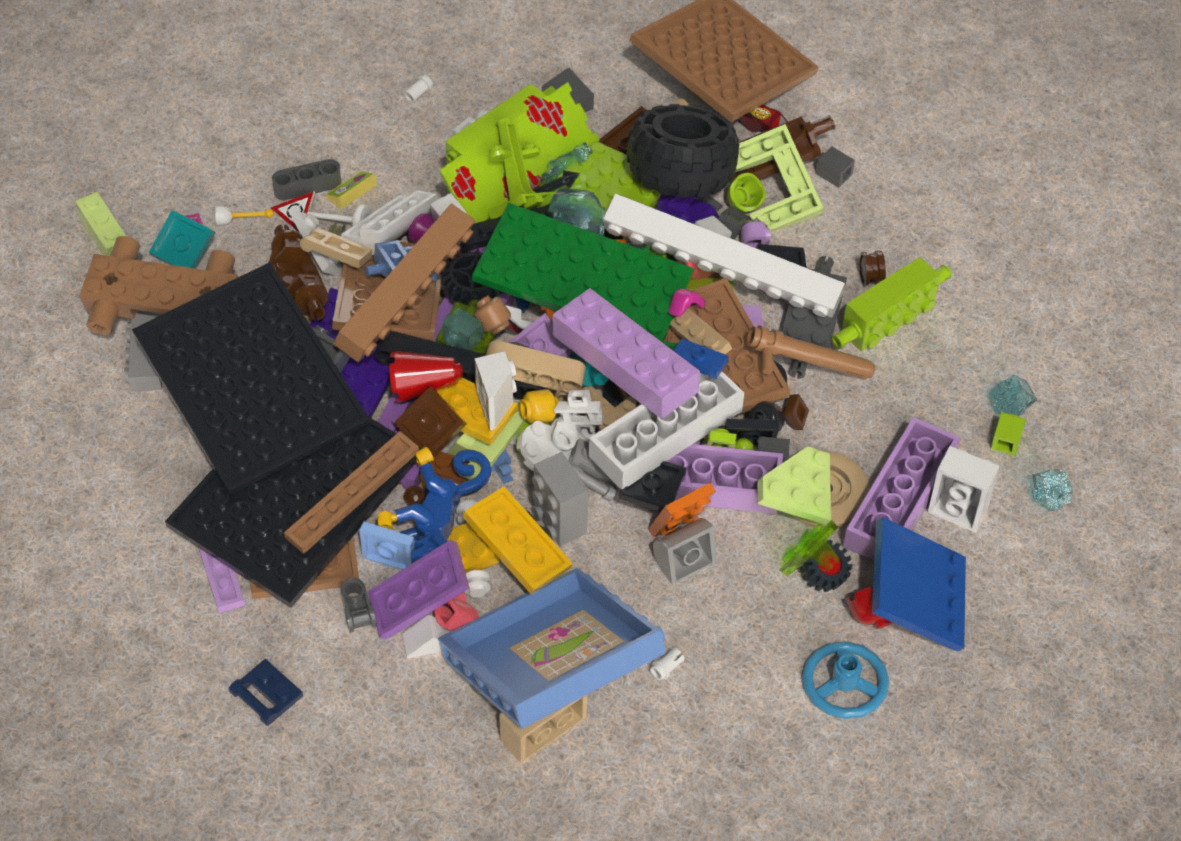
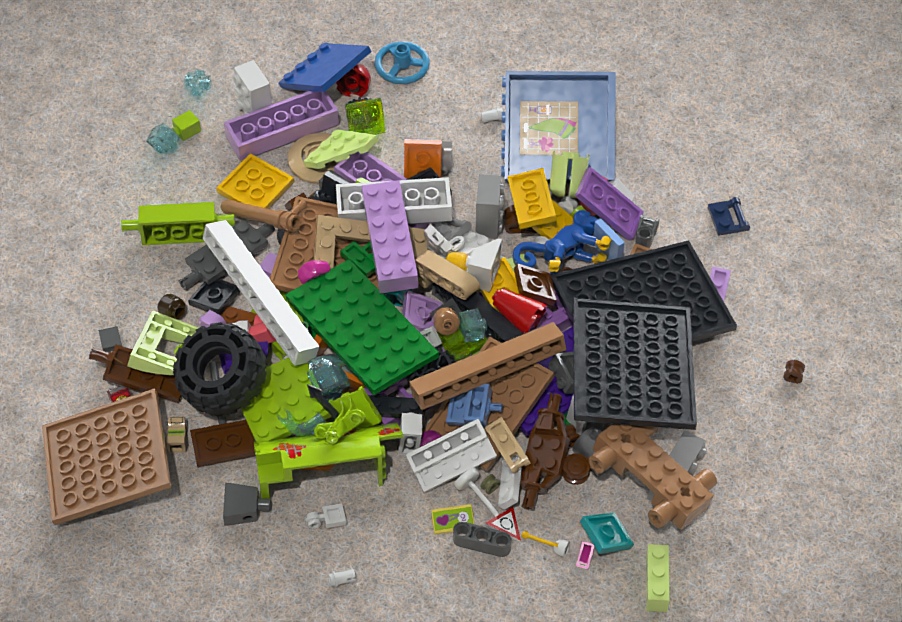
camera: 145 degrees left, 0 degrees up
(70, 522) = (794, 371): none -> reddish brown wheel
(351, 492) = (612, 268): medium nougat plate -> none
(494, 588) = (559, 172): none -> yellowish green cylinder
(704, 359) = (345, 213): blue plate -> none
(812, 230) = (172, 306): none -> dark brown head
(861, 410) = (255, 183): none -> yellow plate
(872, 267) = (161, 258): reddish brown wheel -> none

